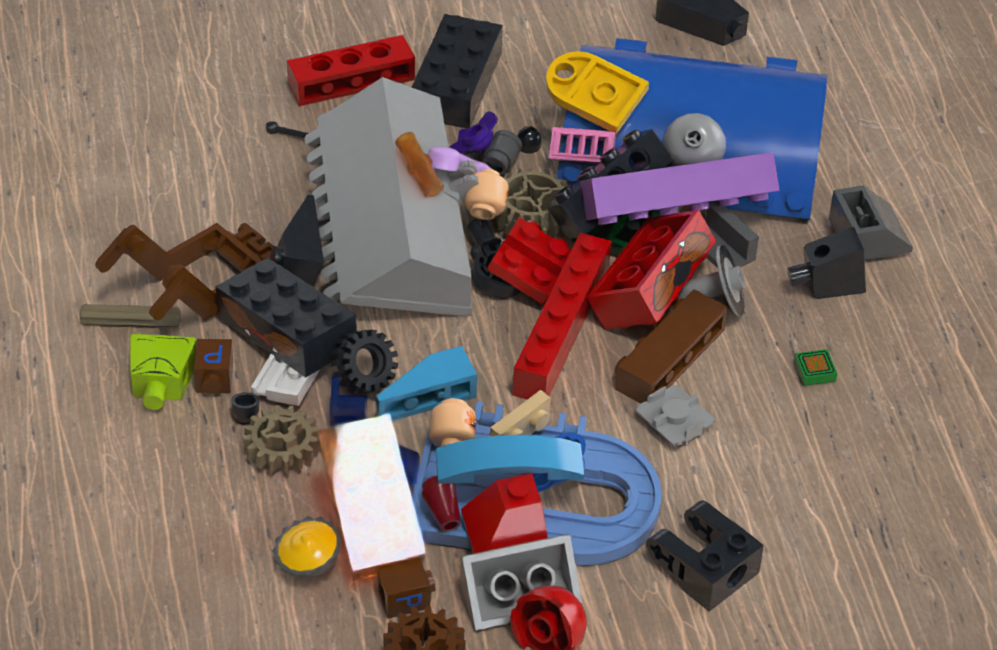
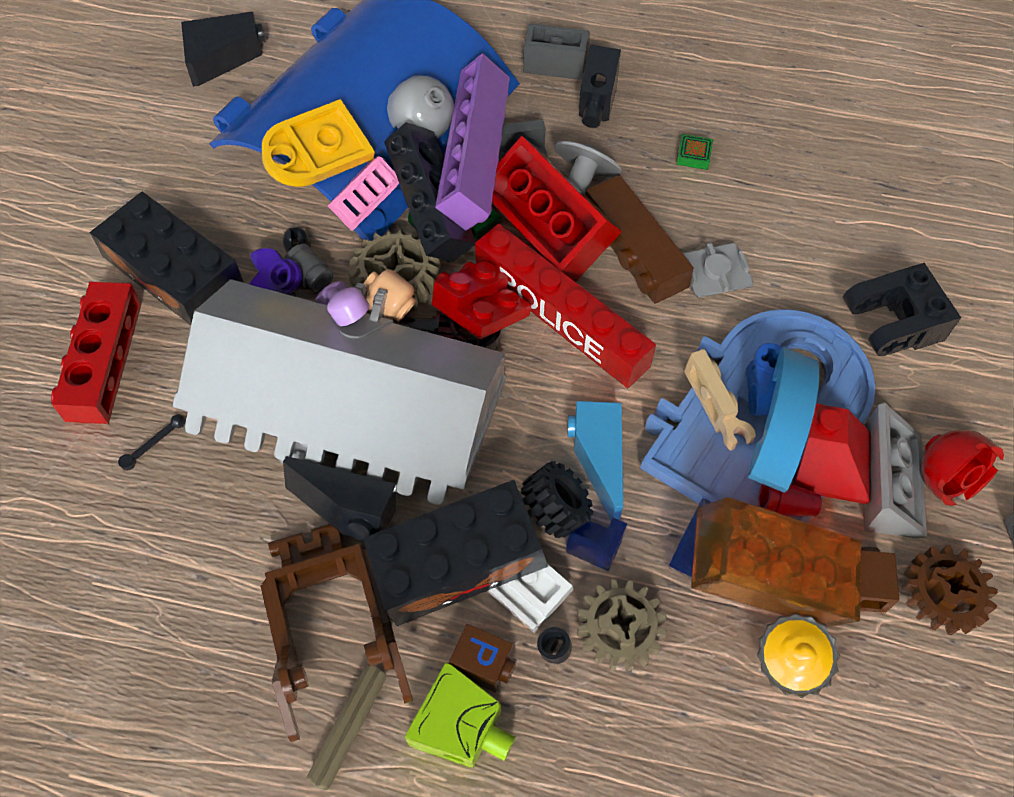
camera: 65 degrees left, 15 degrees up
(419, 164) = (352, 328): clear orange pin -> none
(452, 422) = (692, 450): light nougat head -> none

